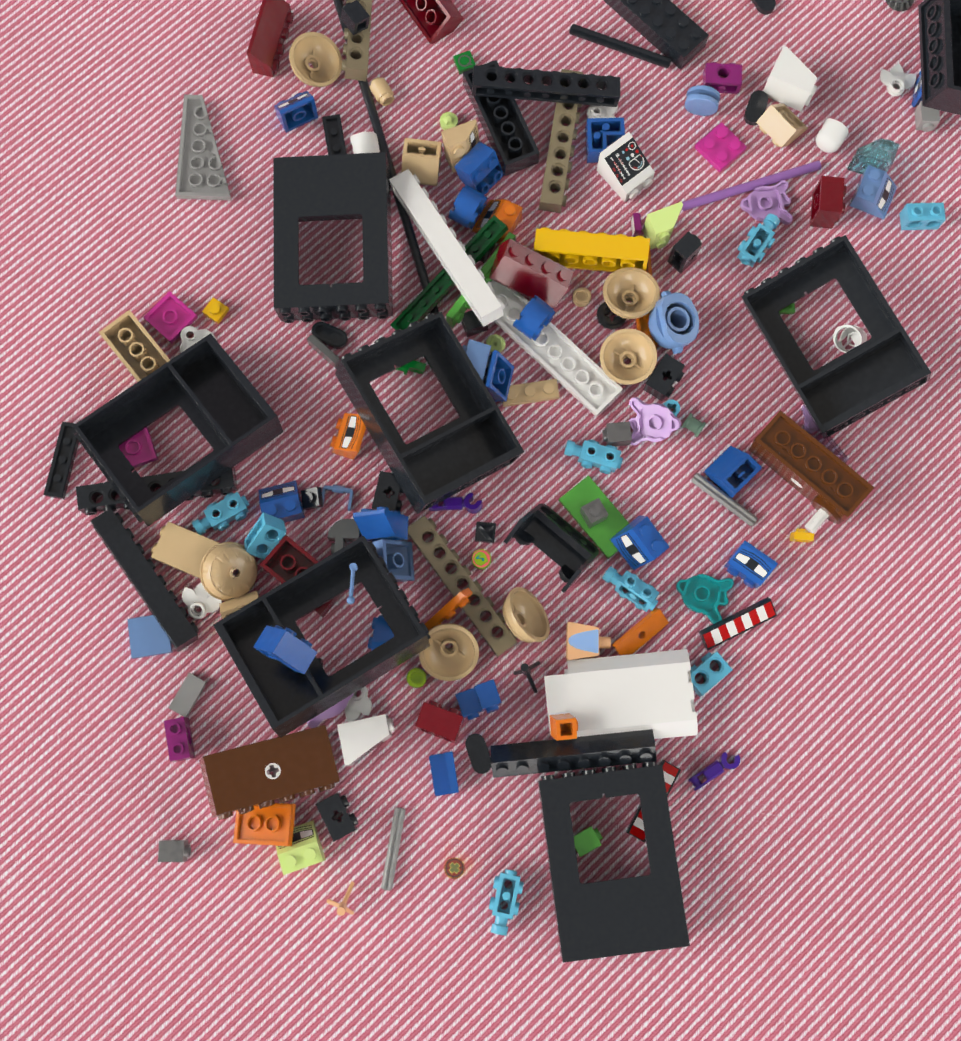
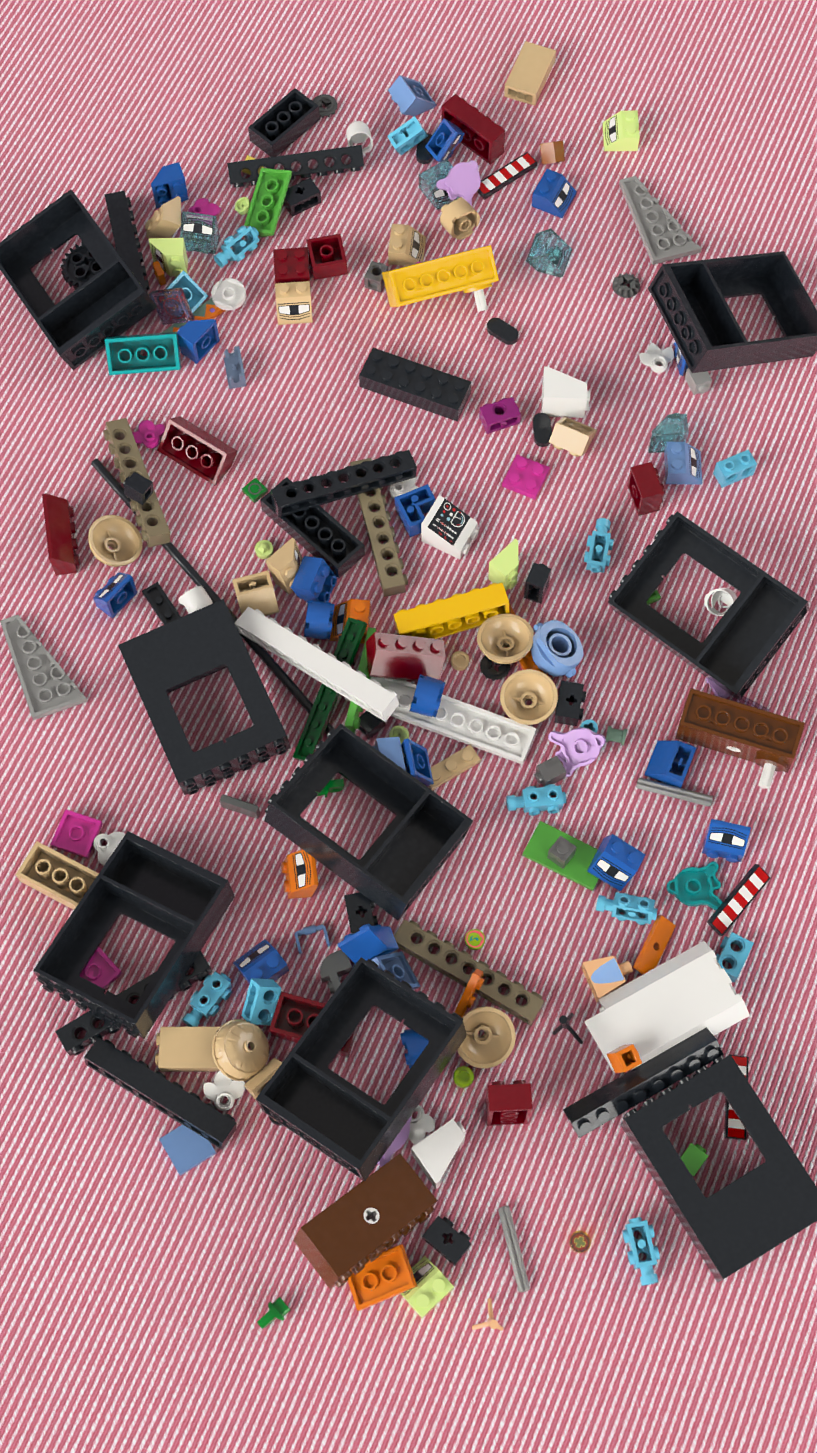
camera: 20 degrees left, 10 degrees down
(62, 462) = (28, 1013): black tile -> none
(164, 813) = (277, 1310): none -> green piece
(173, 851) = (303, 1343): flat silver brick -> none
(179, 739) = (261, 1232): magenta brick -> none
(187, 695) = (250, 1187): light grey tile -> none
(215, 310) = (117, 810): yellow plate -> none
(286, 648) = (338, 1086): blue brick -> none
(311, 498) = (288, 948): black plate -> none
(330, 335) = (238, 789): black tile -> none
(353, 567) = (365, 989): medium blue hinge -> none
(382, 91) = (189, 545): tan brick -> none
(444, 774) = (530, 1156): blue panel -> none
(458, 503) = (429, 896): dark purple piece -> none
(478, 753) = (554, 1123): black tile -> none
(479, 699) = (534, 1068): blue brick -> none
(485, 532) = (467, 913): black tile -> none
(525, 616) = (541, 973): tan hat -> none
(557, 540) = (539, 893): black windscreen -> none
(620, 46) = (393, 421): black axle -> none
(636, 224) = (481, 576): magenta tile -> none
(702, 100) = (491, 441): medium blue head -> none
(714, 770) = (779, 1043): dark purple piece -> none
(751, 185) = (570, 499): medium lavender piece -> none
(768, 200) = (591, 507): lavender tile -> none
(801, 535) = (759, 795): yellow plate -> none
(831, 135) = (621, 429): white helmet -> none

